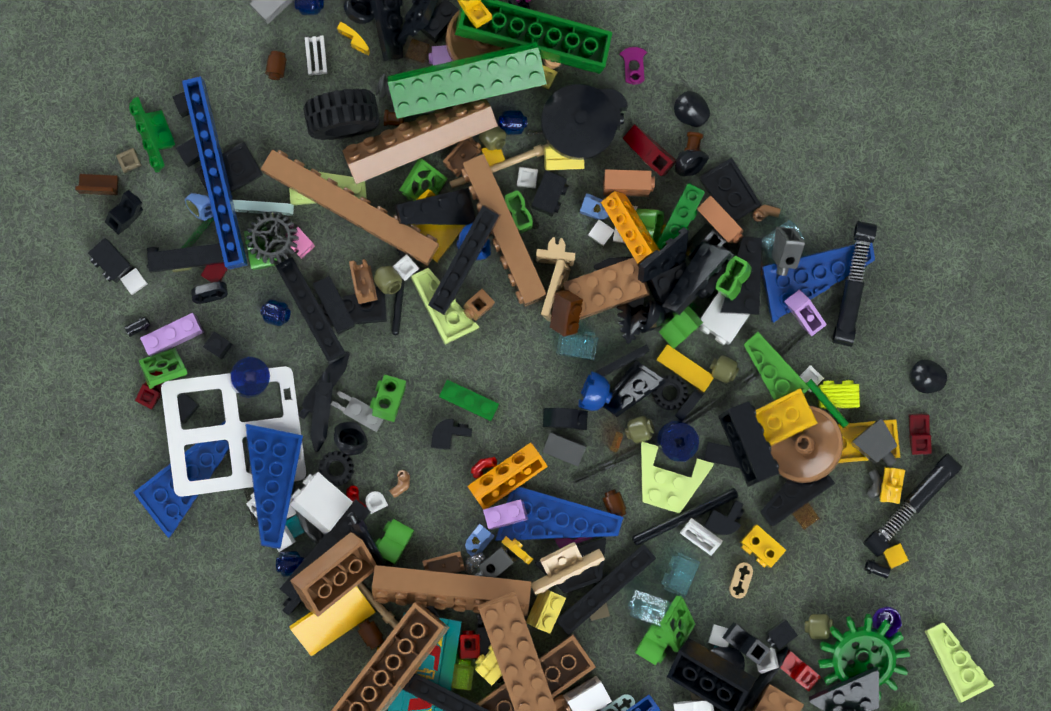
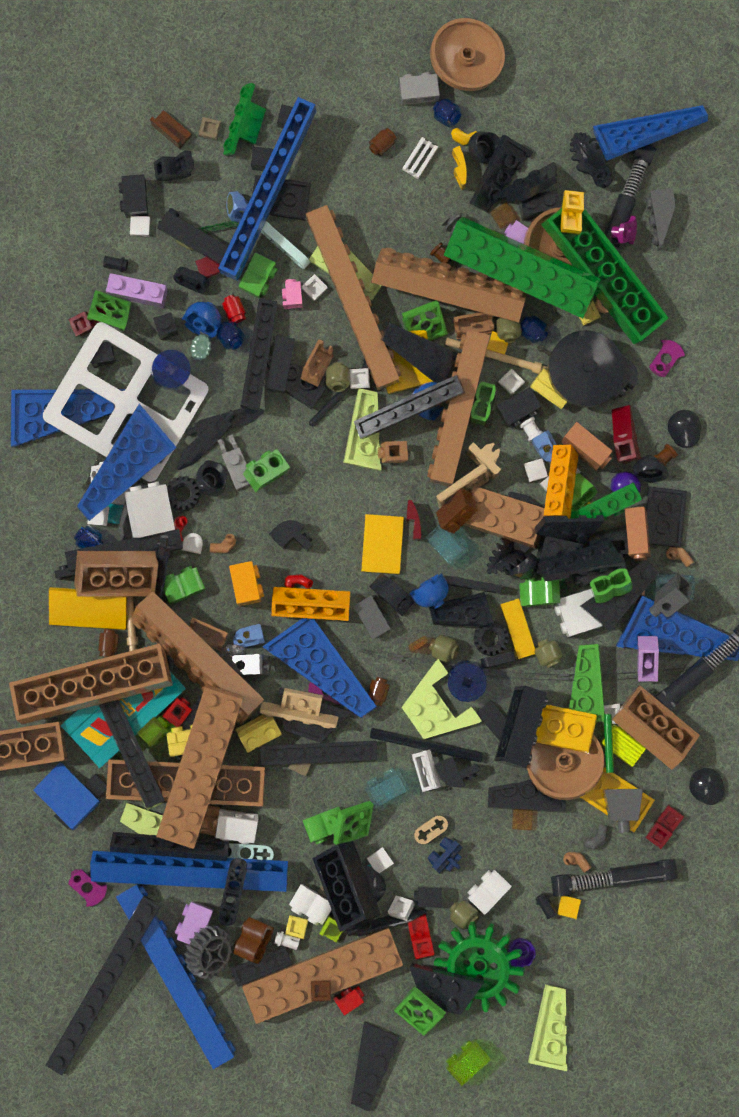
camera: 35 degrees right, 0 degrees up
(243, 315) = (201, 315): none -> blue cylinder
(257, 232) = (279, 270): dark grey gear -> none
(259, 340) = (200, 347): none -> sand green piece
(262, 289) = (234, 309): none -> red brick
(312, 223) = (314, 287): none -> white tile
(335, 13) = (461, 137): none -> yellow arm
(341, 114) = (402, 218): black tyre -> none
(443, 500) = (245, 583): none -> light orange brick
(469, 400) = (327, 521): green plate -> none
(505, 514) = (285, 632): lavender brick -> none
(515, 546) = (273, 664): yellow plate -> none
(526, 385) = (382, 544): none -> yellow tile
(533, 343) = (412, 515): none -> dark red slope
(572, 202) = (531, 428): none -> white bush
(648, 607) = (340, 792): clear light blue hinge -> none
(676, 187) = (623, 479): none -> dark purple hair
(746, 643) = (395, 881): black brick -> none
(762, 546) = (468, 815): yellow brick -> none
(768, 600) = (448, 858): none -> dark blue hips
(824, 594) = (489, 891): none -> white brick
(853, 362) = (656, 727): none -> medium nougat brick
(873, 512) = (576, 859): none -> medium nougat arm
(892, 485) = (610, 848): yellow hips -> none

